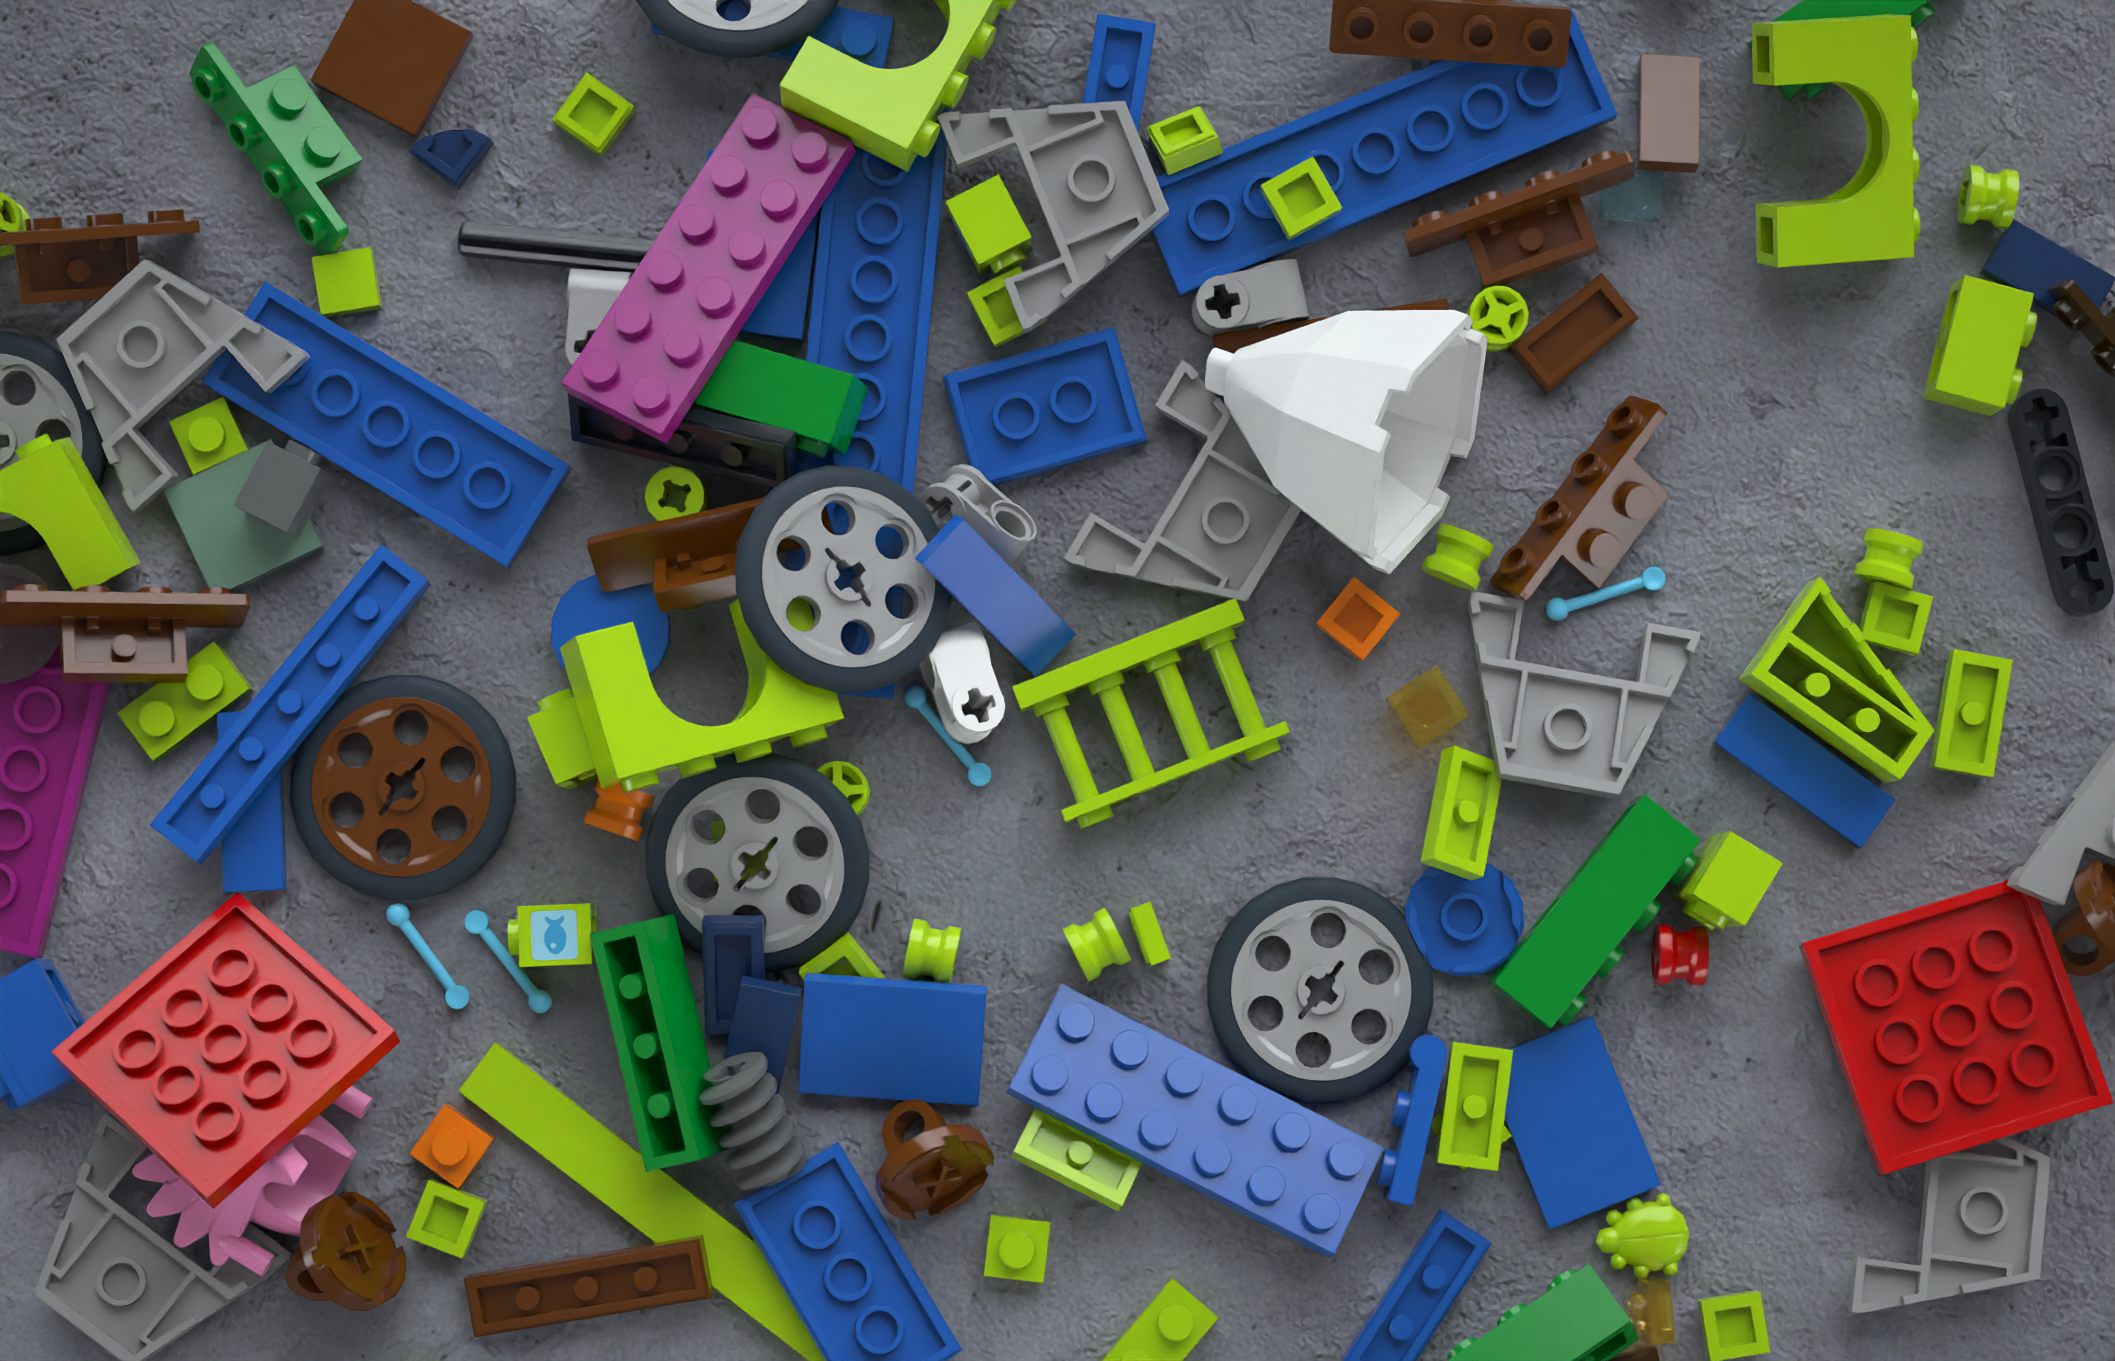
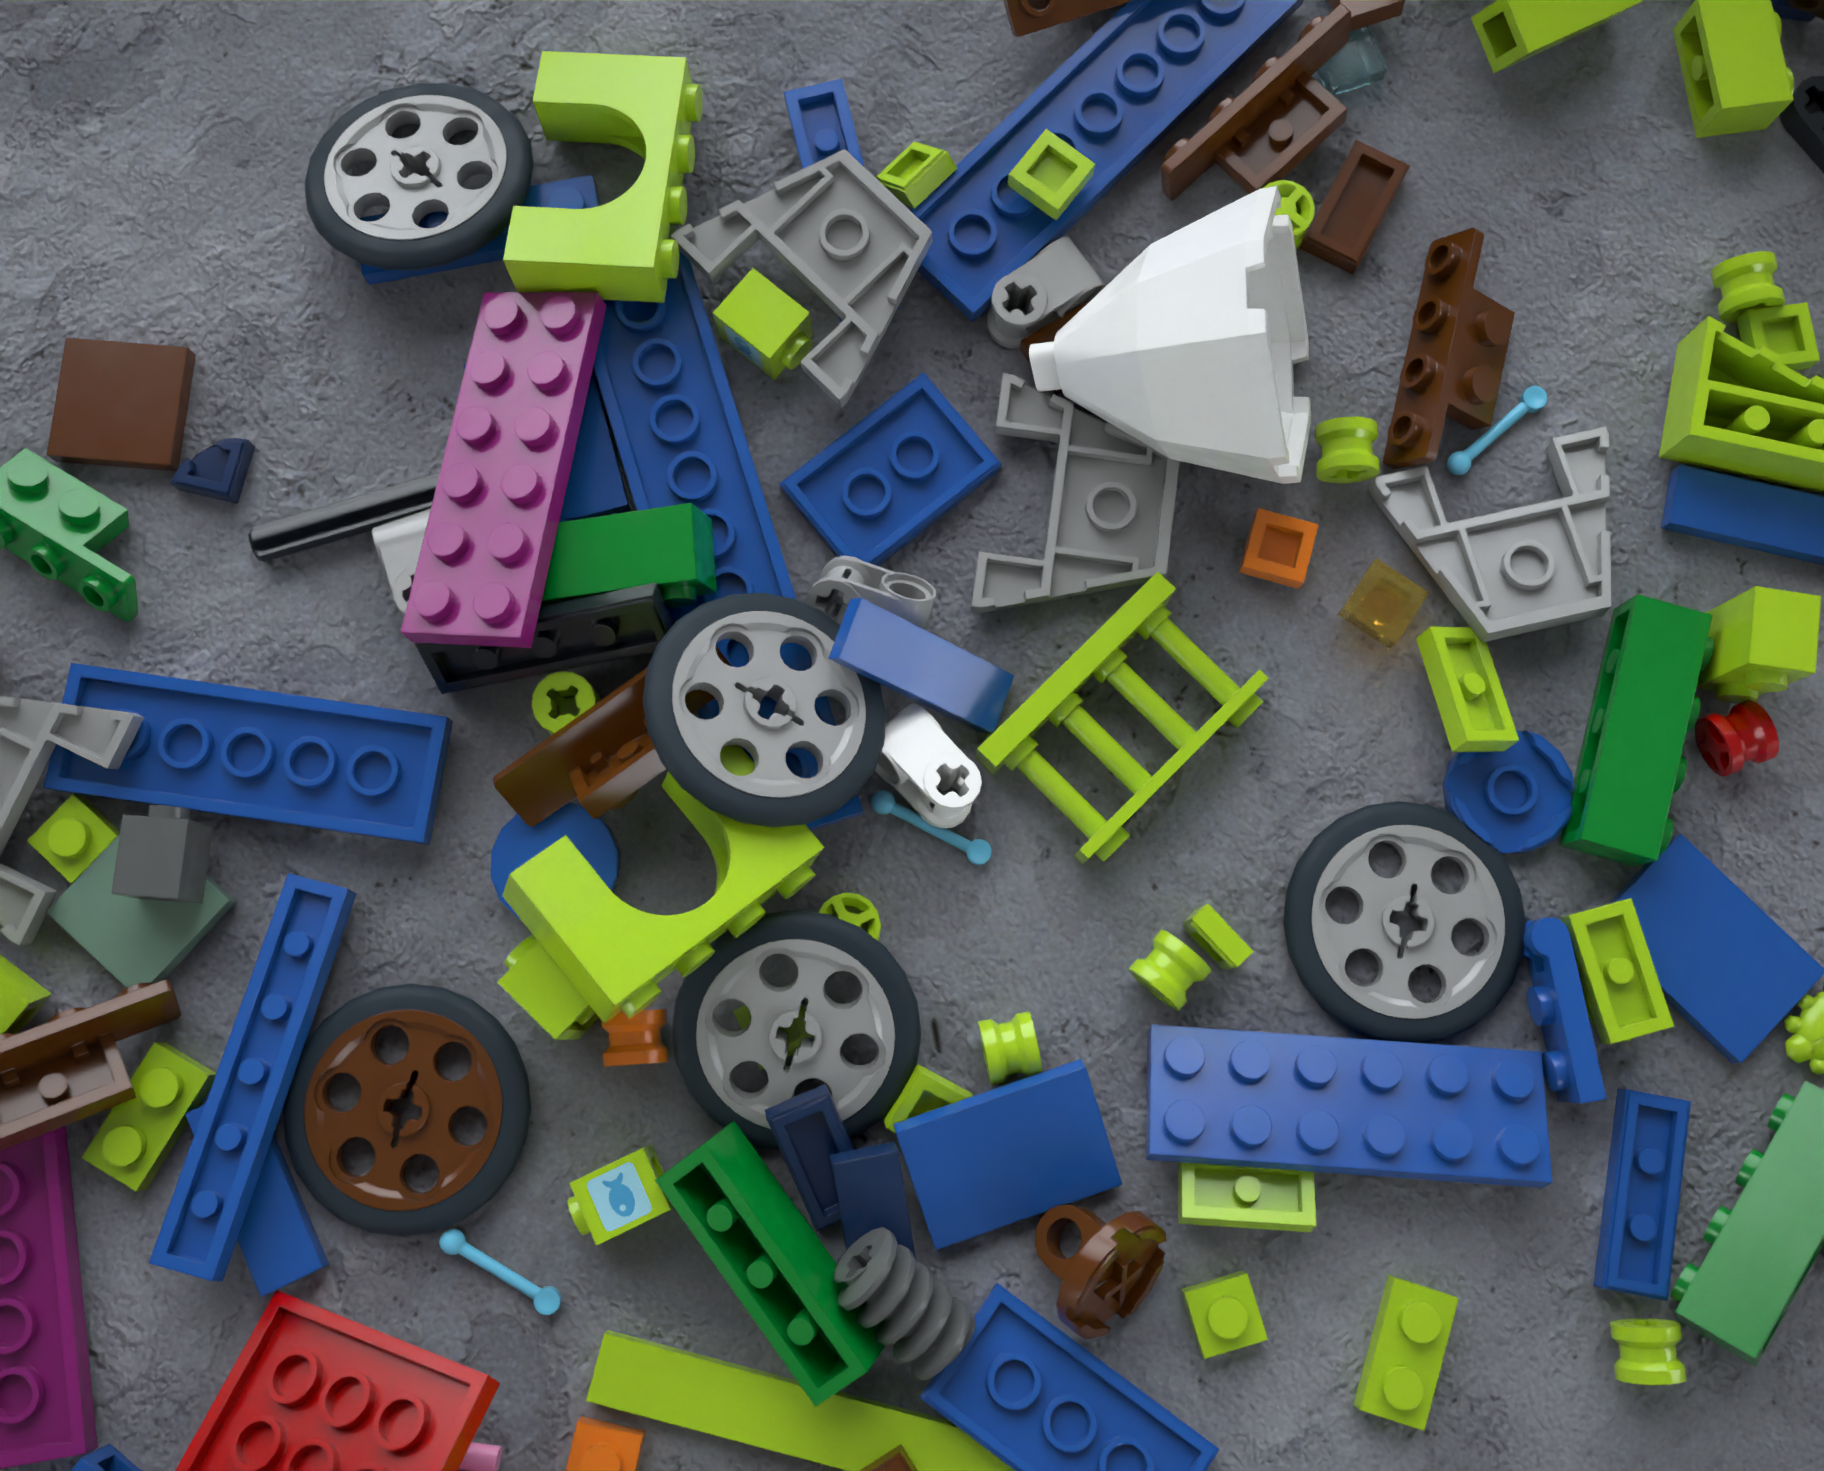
camera: 20 degrees left, 5 degrees down
(347, 282) = (158, 633): lime tile -> none
(478, 923) = (540, 1214): medium azure hinge -> none
(594, 115) = (341, 379): lime tile -> none
(996, 310) = (806, 402): lime plate -> none

